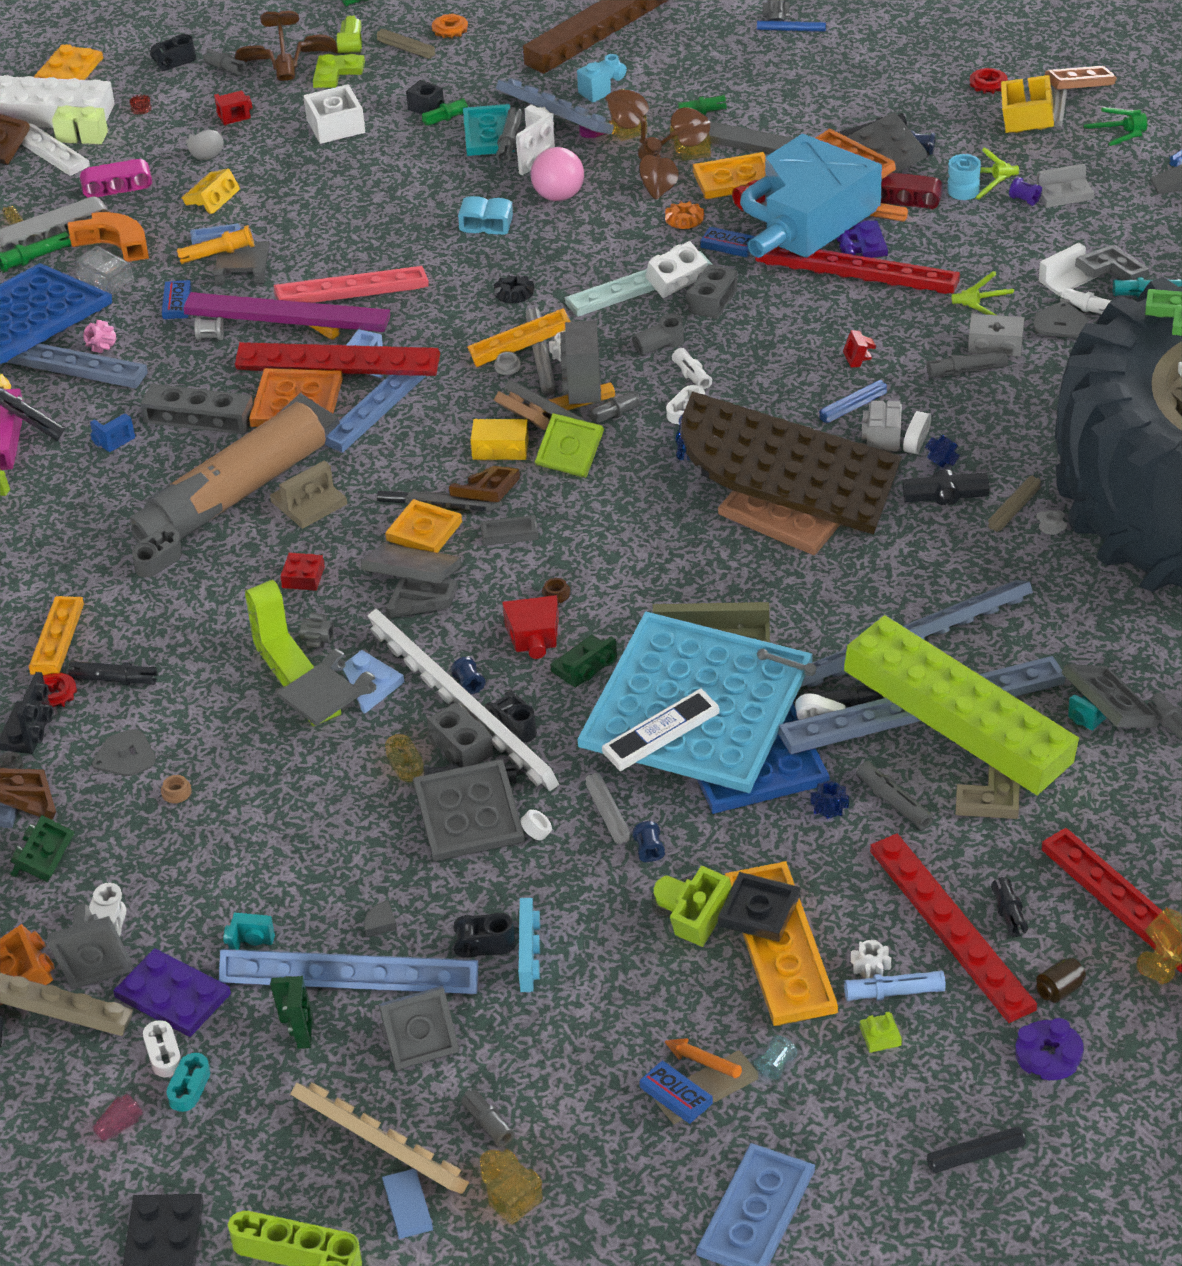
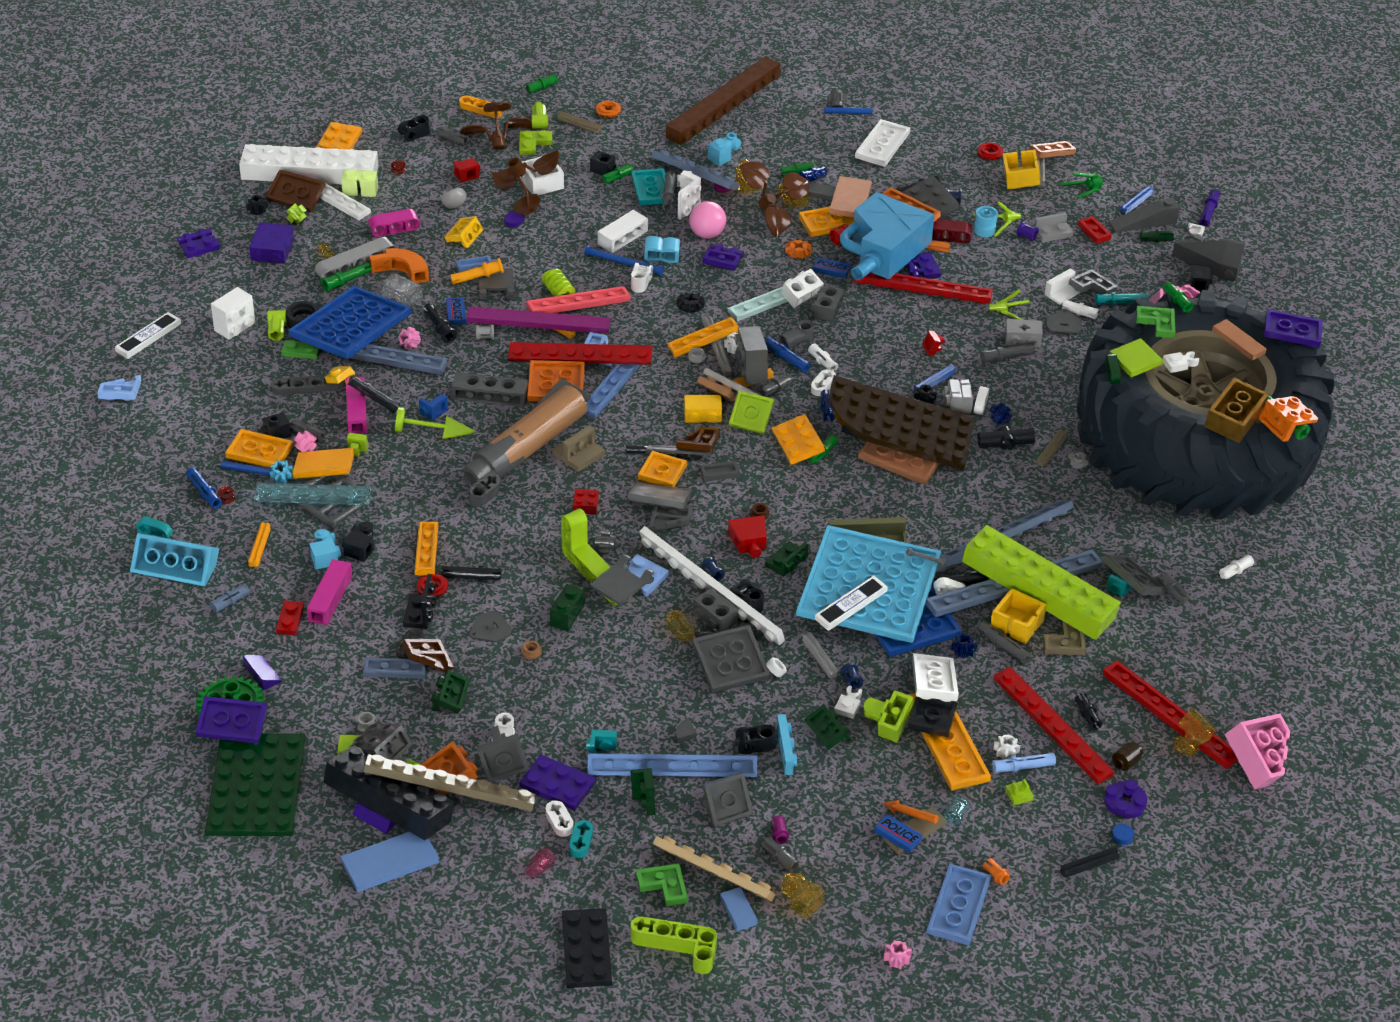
camera: 10 degrees left, 0 degrees up
(132, 464) = (451, 427): none -> lime piece
(150, 319) = (441, 326): none -> black pin
(240, 726) = (567, 607): none -> dark green brick
(252, 20) = (473, 104): none -> light orange beam
(285, 119) = (506, 178): none -> reddish brown plant
(285, 175) = (513, 219): none -> dark purple tile
(305, 1151) = (666, 878): none -> bright green plate
(325, 260) = (557, 283): none -> lime piece
(434, 190) = (622, 231): none -> white brick
(448, 253) = (640, 277): none -> white piece
(477, 244) = (601, 254): none -> blue bar
(493, 1085) = (780, 833): none -> magenta pin
(572, 225) = (723, 256): none -> dark purple plate
(597, 919) = (826, 726): none -> dark green bracket
(631, 485) = (798, 439): none -> light orange plate
(632, 359) = (782, 351): none -> blue pin
(638, 885) = (849, 703): none -> white plate
(667, 500) = (828, 444): none -> green axle
(723, 111) = (818, 172): none -> clear blue pin
(766, 137) = (849, 195): none -> nougat tile
(772, 847) = (934, 677): none -> white plate
(827, 1164) = (998, 873): none -> orange pin
(832, 69) = (882, 142): none -> white plate
(833, 422) = (925, 394): none -> black gear
(920, 755) = (1018, 615): none -> yellow piece
(1036, 1106) = (1122, 834): none -> blue tile
(1097, 381) = (1113, 369): none -> dark green beam
(1126, 189) = (1094, 230): none -> red plate
(1136, 365) = (1137, 357): none -> lime tile

